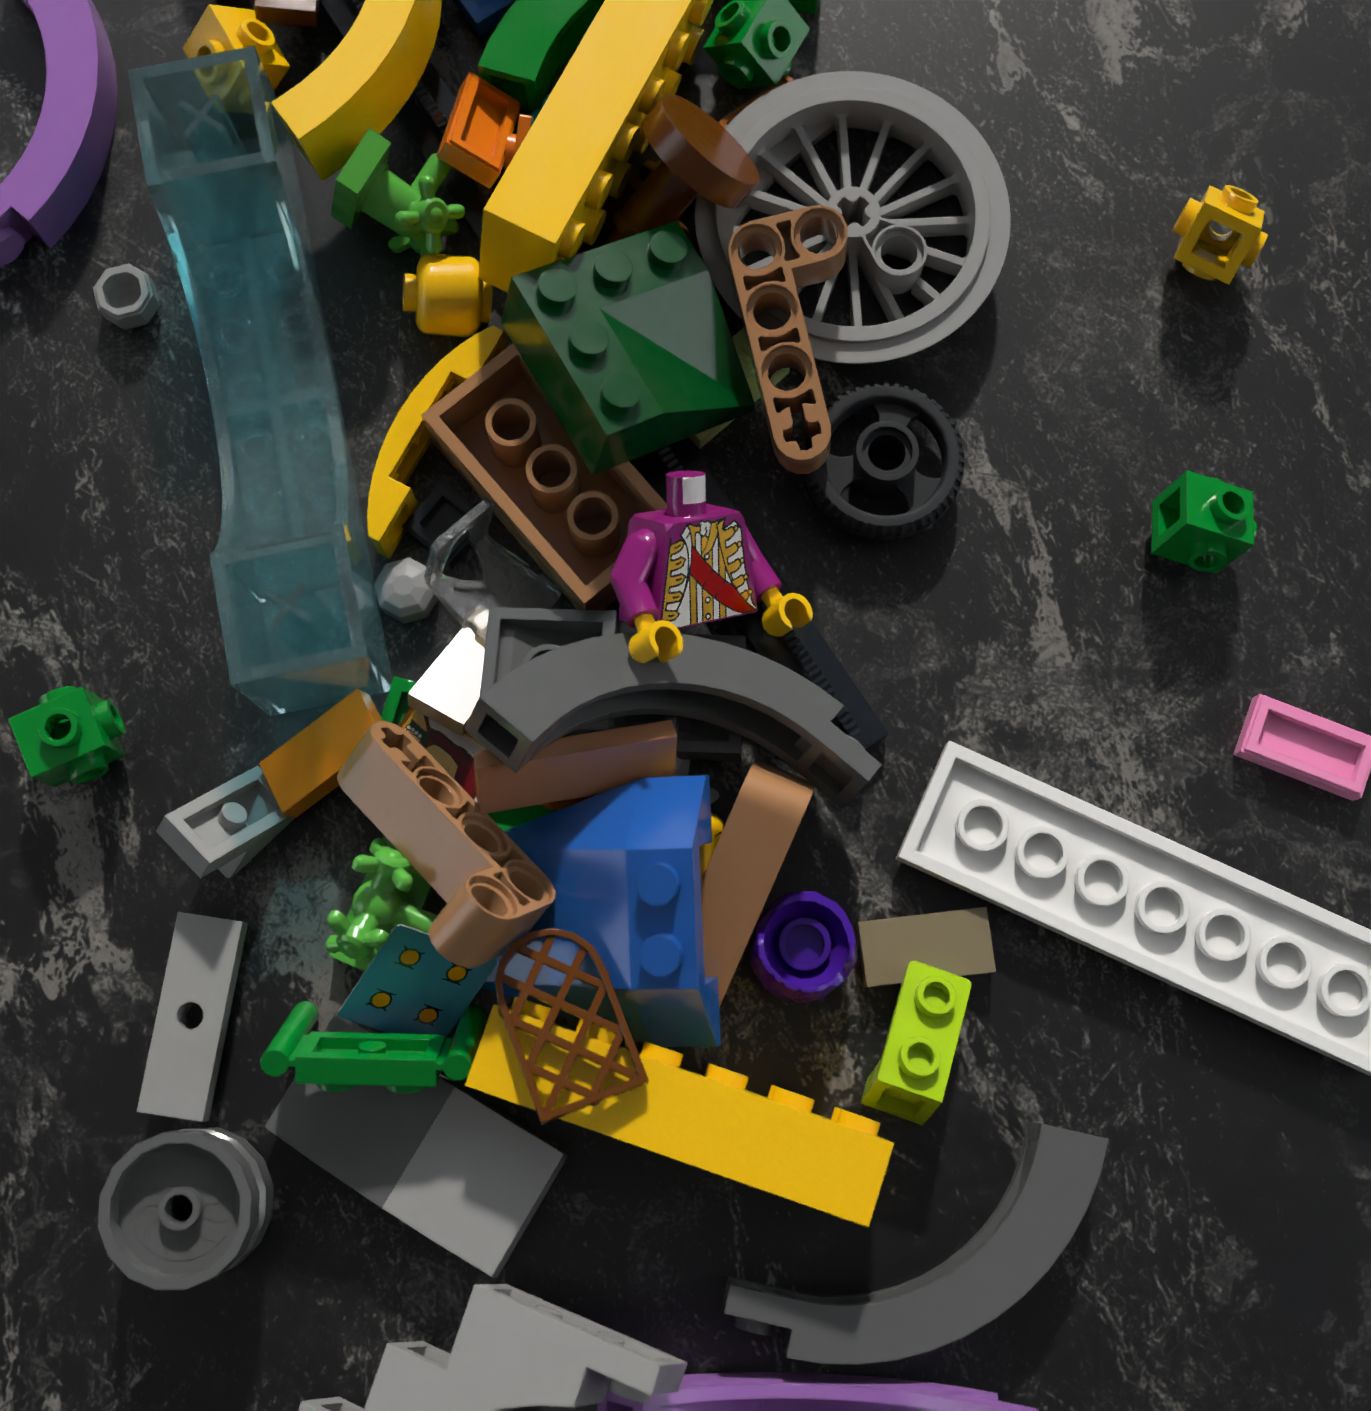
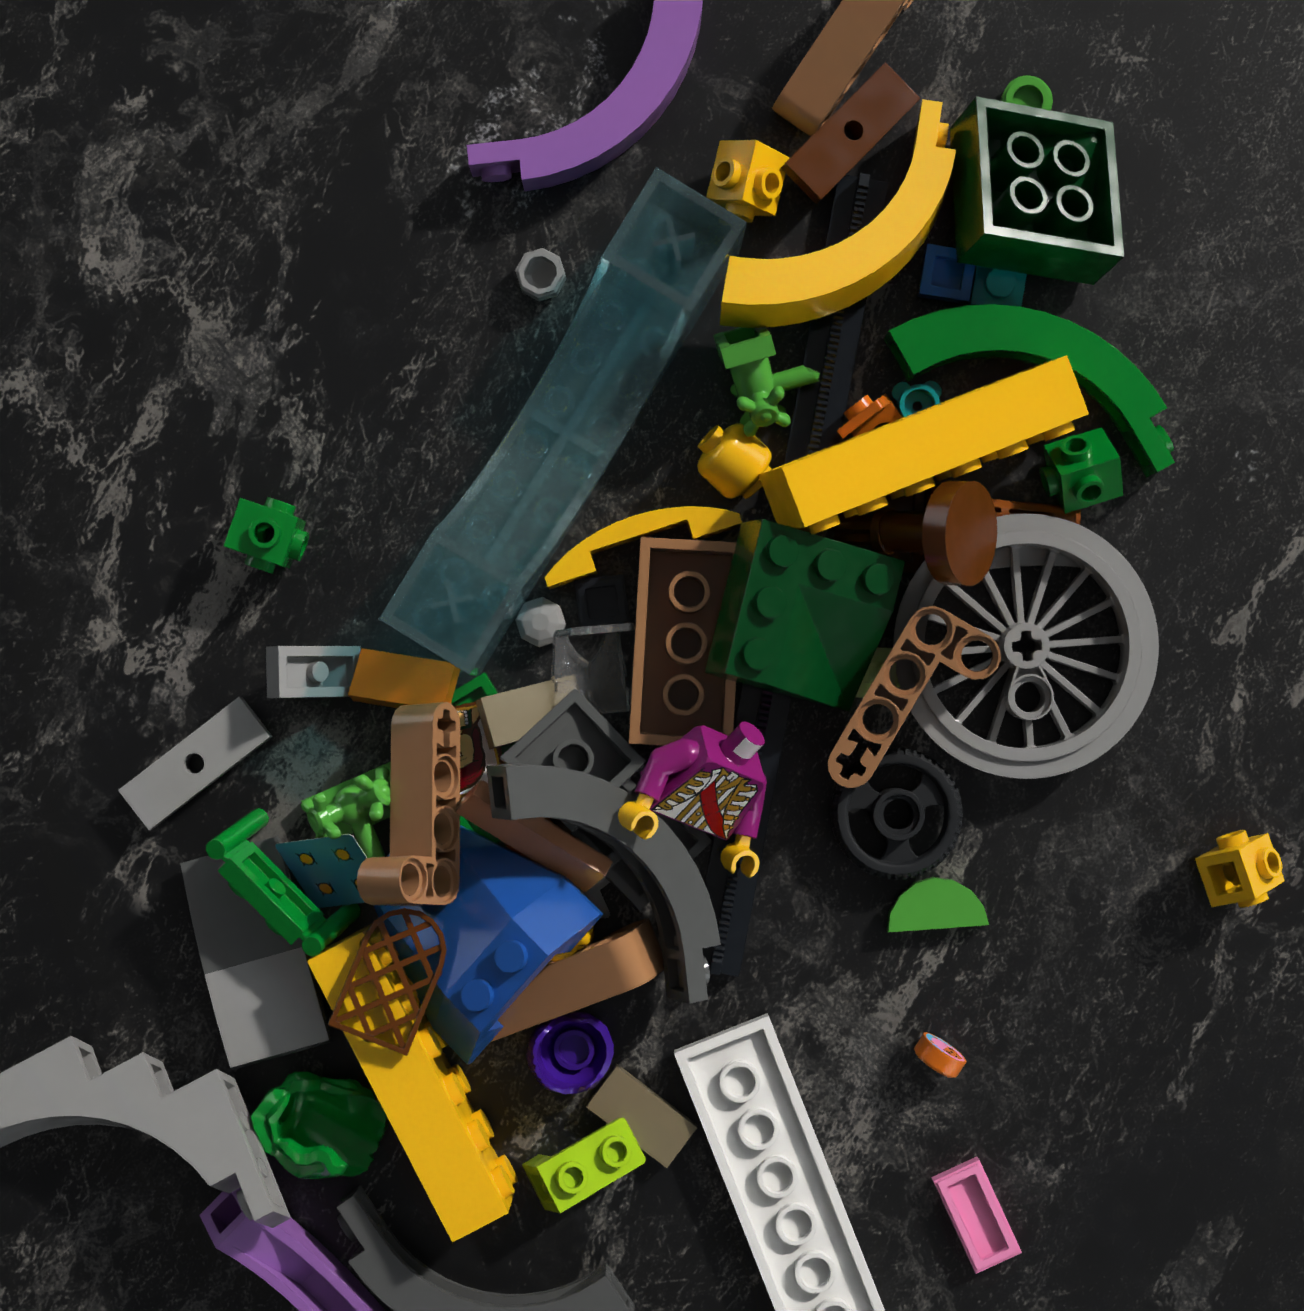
camera: 45 degrees right, 10 degrees up
(172, 1243) = (76, 854): dark grey wheel -> none
(479, 130) = (851, 372): orange tile -> none
(634, 1248) = (320, 1125): none -> green hair
(996, 511) = (935, 905): none -> bright green tile
(1132, 633) = (939, 1055): none -> orange tile
(1202, 522) = (1045, 1033): green brick -> none

